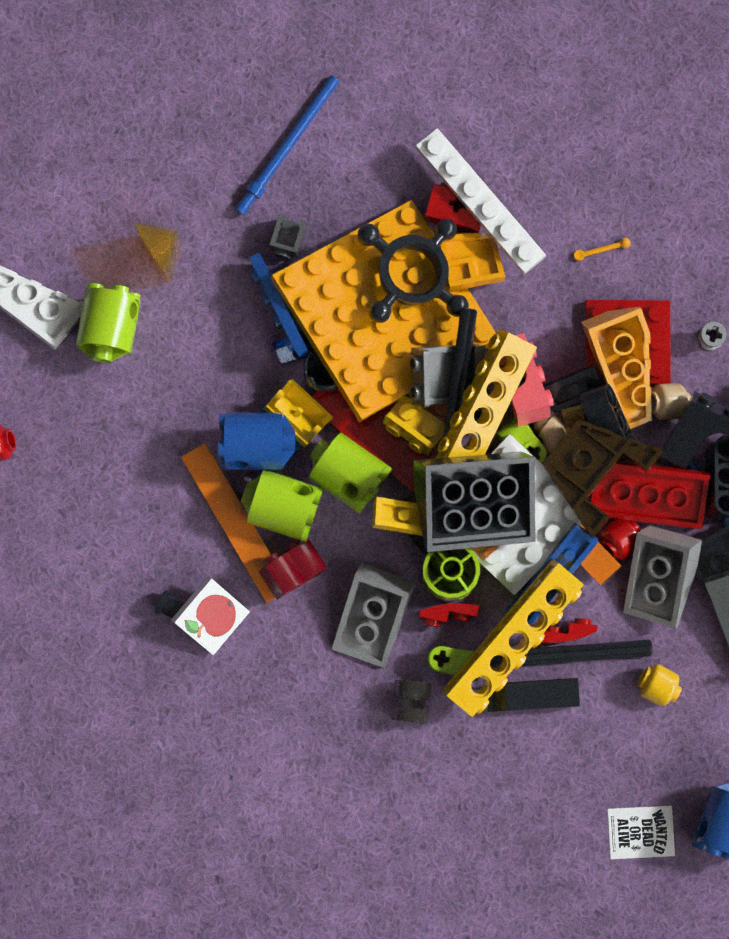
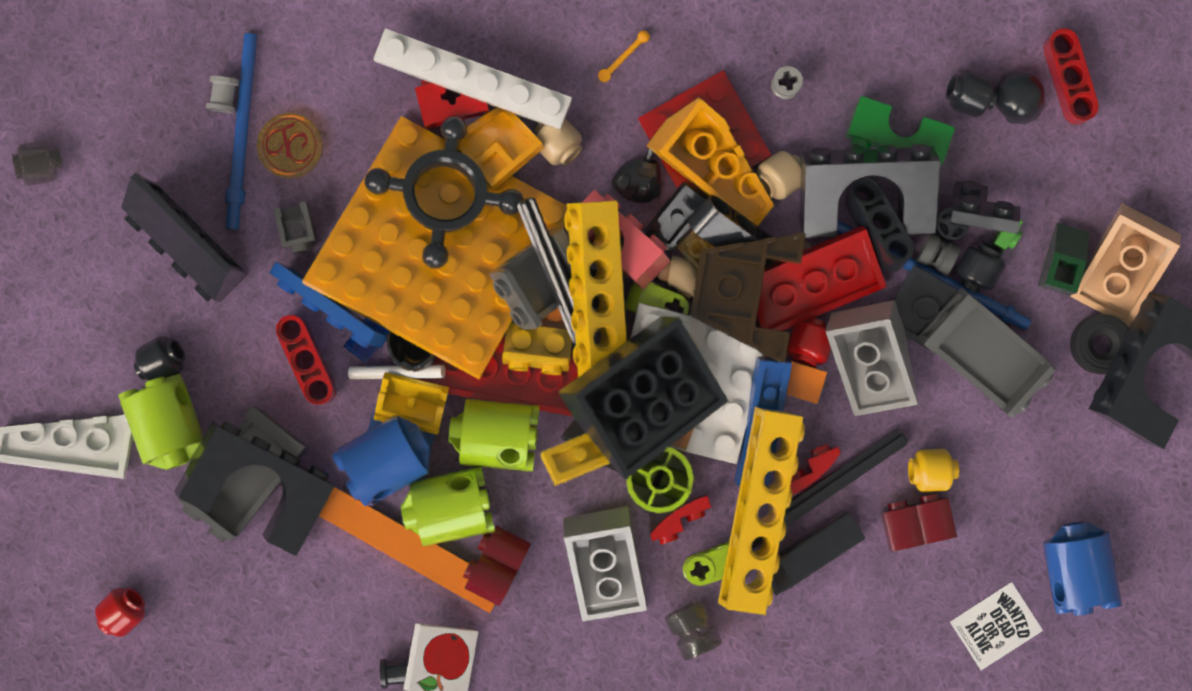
camera: 30 degrees left, 5 degrees up
(125, 83) = (36, 162): none -> clear smoke head
(132, 274) = (159, 358): none -> black head
(143, 396) = (249, 486): none -> dark grey panel
(163, 247) = (175, 313): clear yellow slope -> none
(180, 431) = (226, 451): none -> black arch
(198, 196) = (181, 239): none -> black slope
(238, 324) = (294, 348): none -> red beam
(285, 377) = (377, 372): none -> white bar
(289, 110) = (222, 94): none -> light grey bush
(316, 175) = (289, 145): none -> clear yellow tile
(518, 286) = (560, 145): none -> tan head
(561, 345) = (639, 179): none -> black piece
(626, 719) = (918, 523): none -> dark red brick

